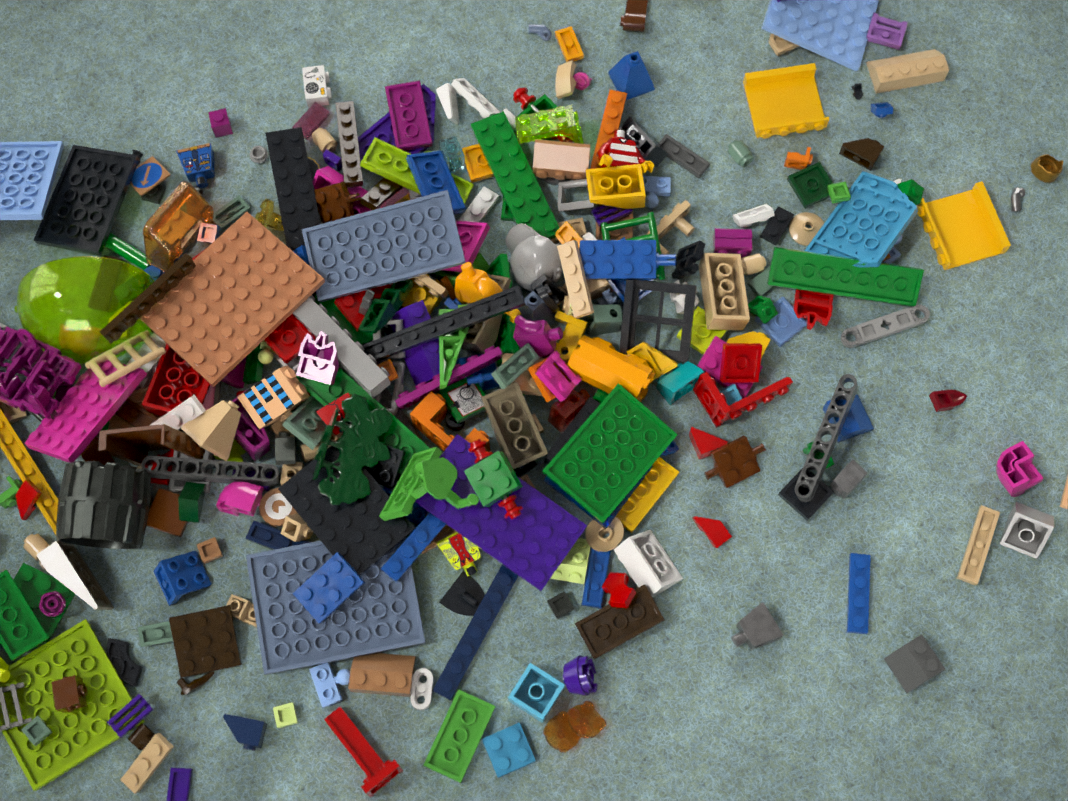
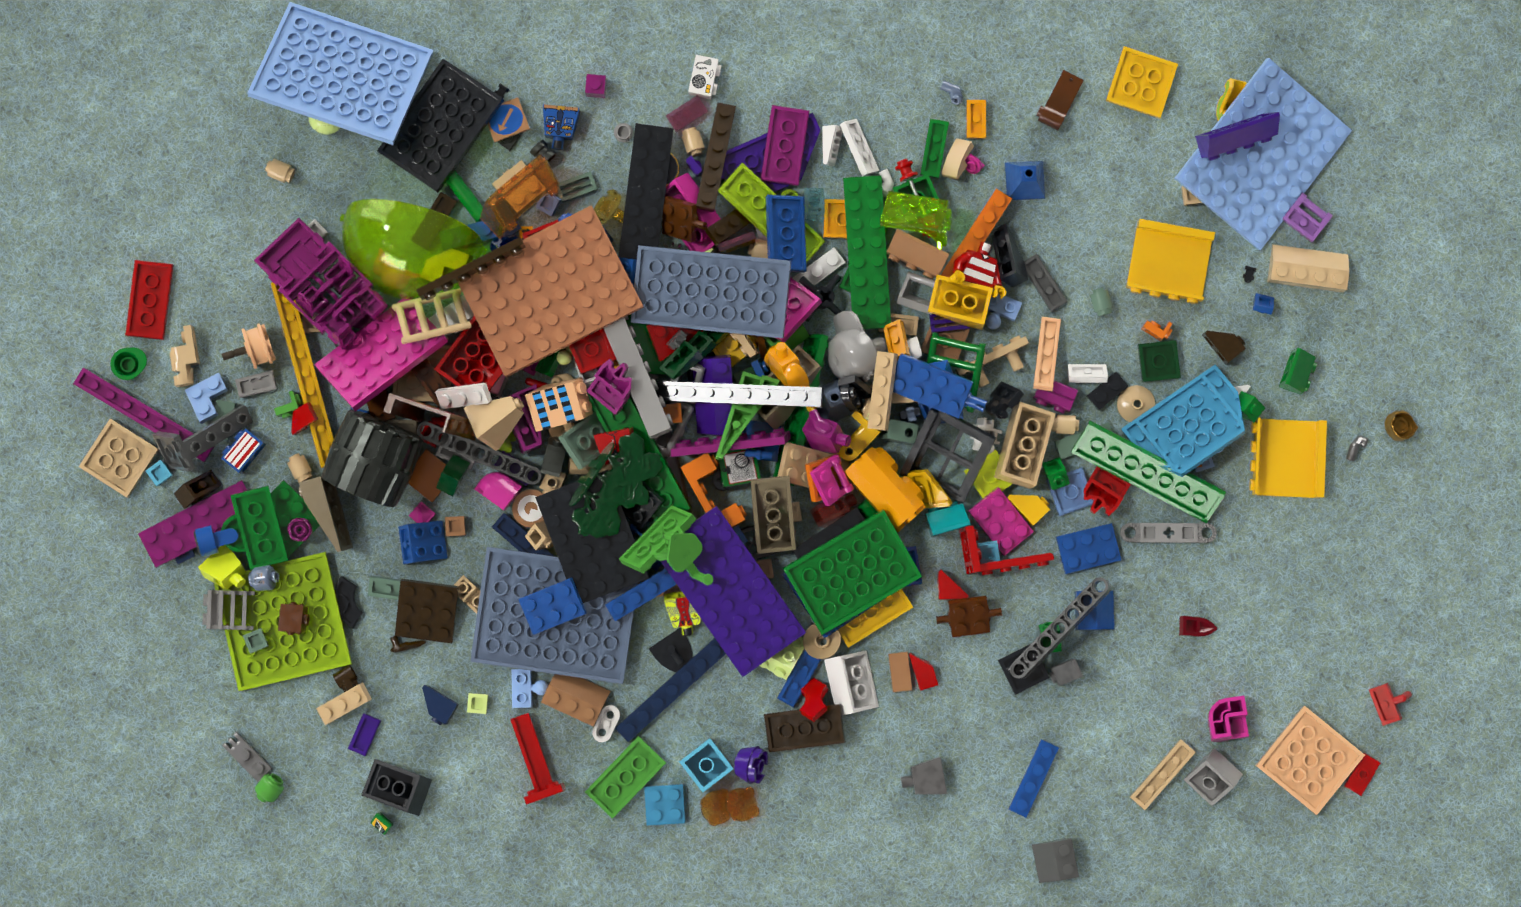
camera: 20 degrees right, 15 degrees up
(27, 664) = (263, 578): none -> sand blue head
(124, 710) = (325, 662): dark purple tile -> none
(173, 549) = (422, 513): none -> dark pink tile
(494, 224) = (826, 292): none -> black bar
(494, 479) = (734, 565): green brick -> none
(515, 366) = (793, 459): sand green tile -> none
(541, 76) = (934, 148): none -> green plate
(560, 605) = (757, 692): pearl dark grey plate -> none
(690, 538) = (900, 671): none -> medium nougat tile
(710, 209) = (1046, 353): none -> light nougat tile
(740, 362) = (1010, 526): red hinge -> none
(818, 365) = (1088, 548): none -> blue plate
(839, 192) = (1180, 380): bright green tile -> none
(937, 151) = (1298, 371): none -> green slope

